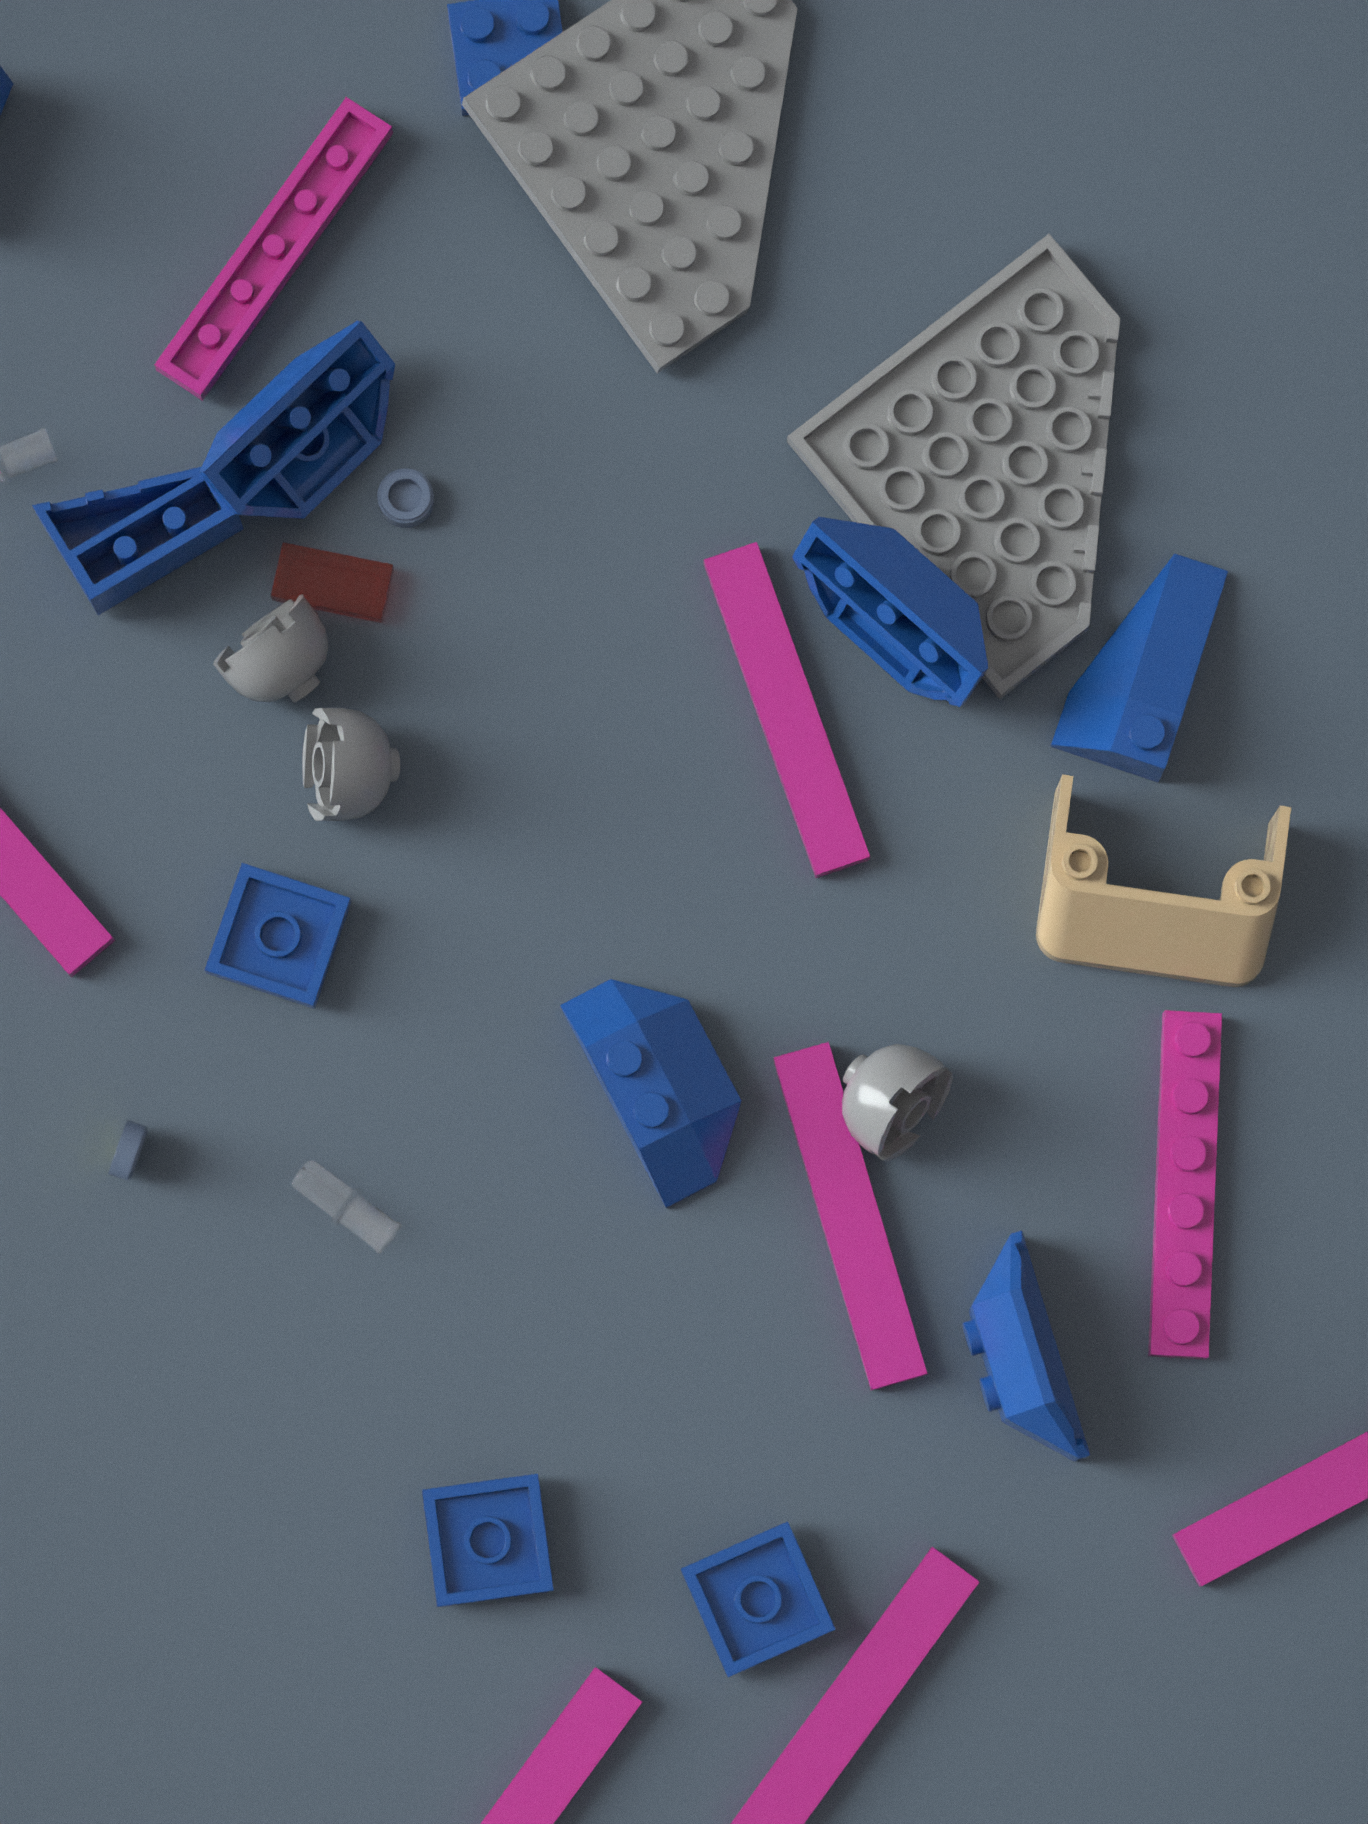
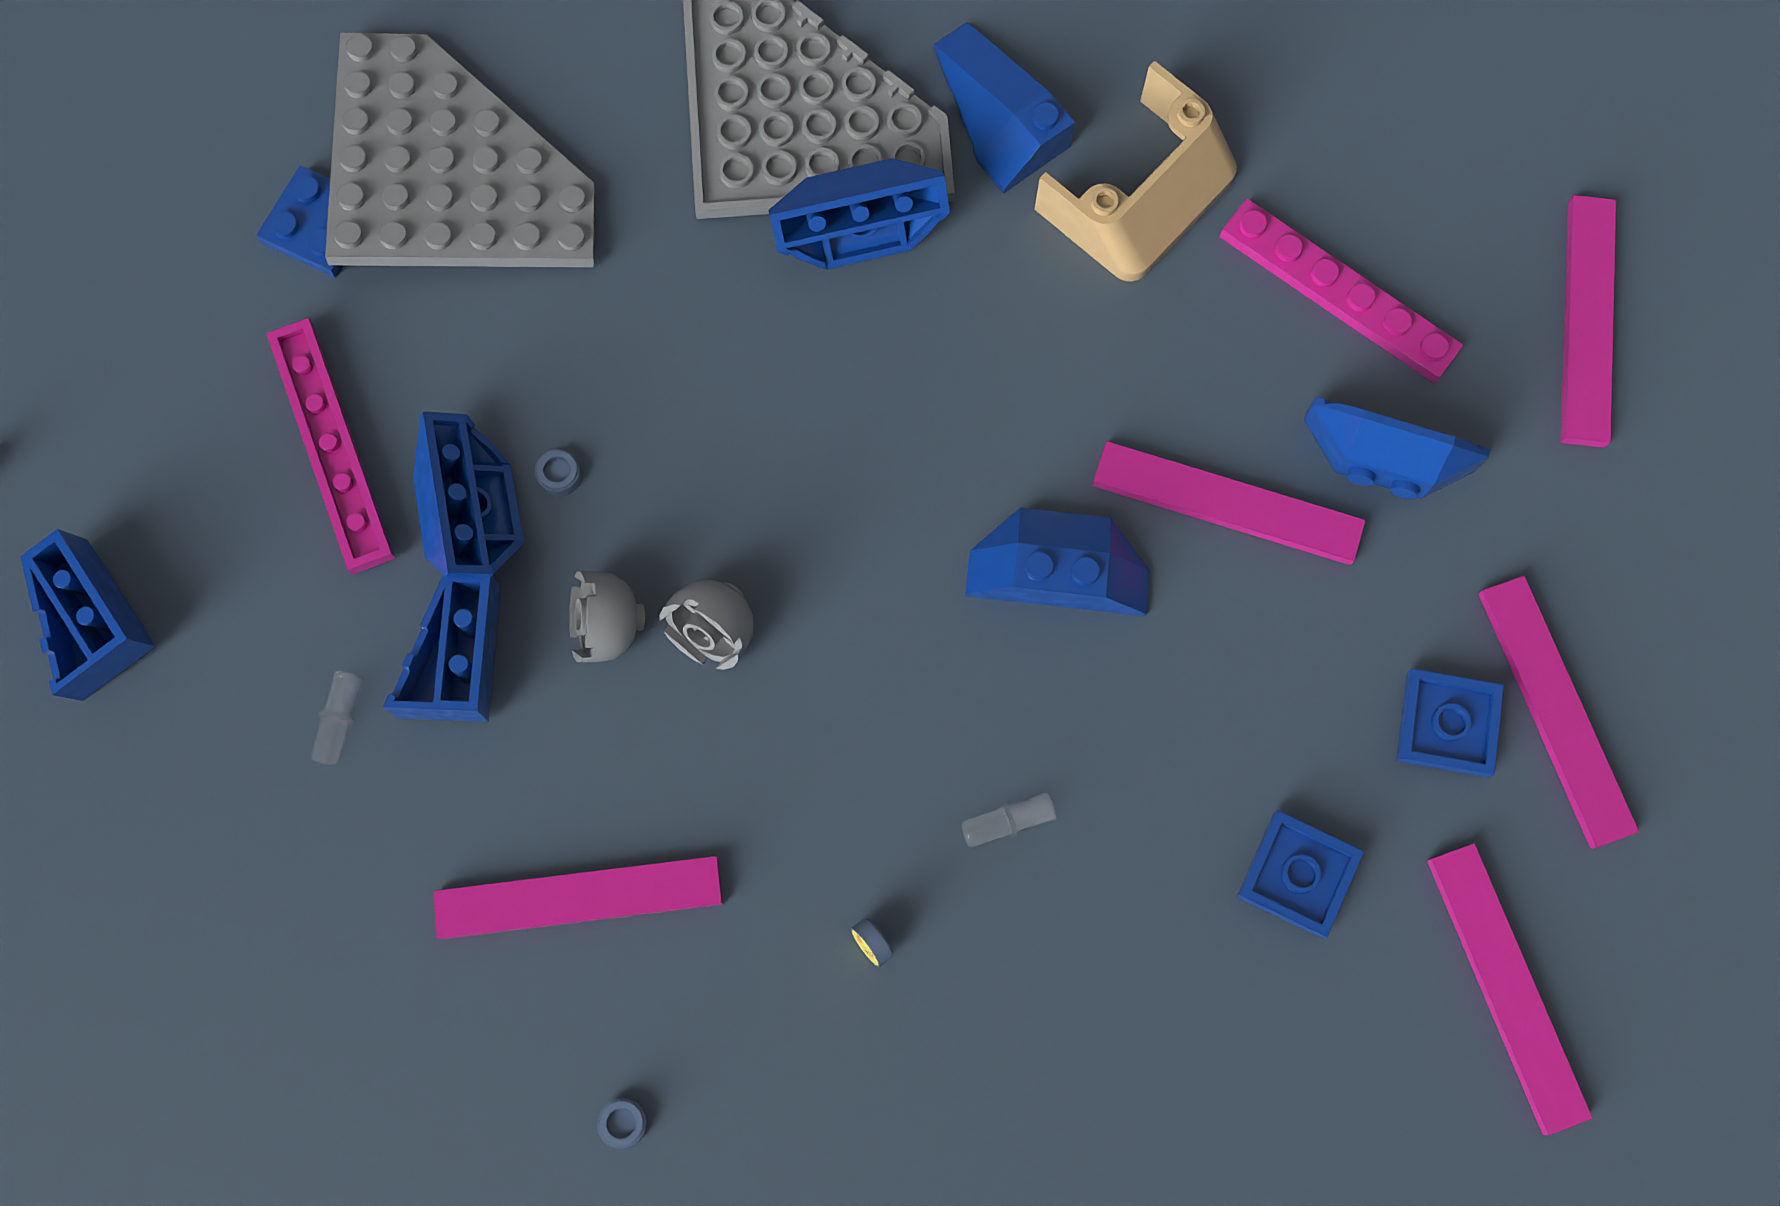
camera: 55 degrees left, 5 degrees down
(278, 935) = (793, 744): blue plate -> none
(333, 581) = (582, 549): clear red tile -> none
(786, 710) = (869, 329): dark pink tile -> none
(891, 1095) = (1169, 422): light grey cylinder -> none

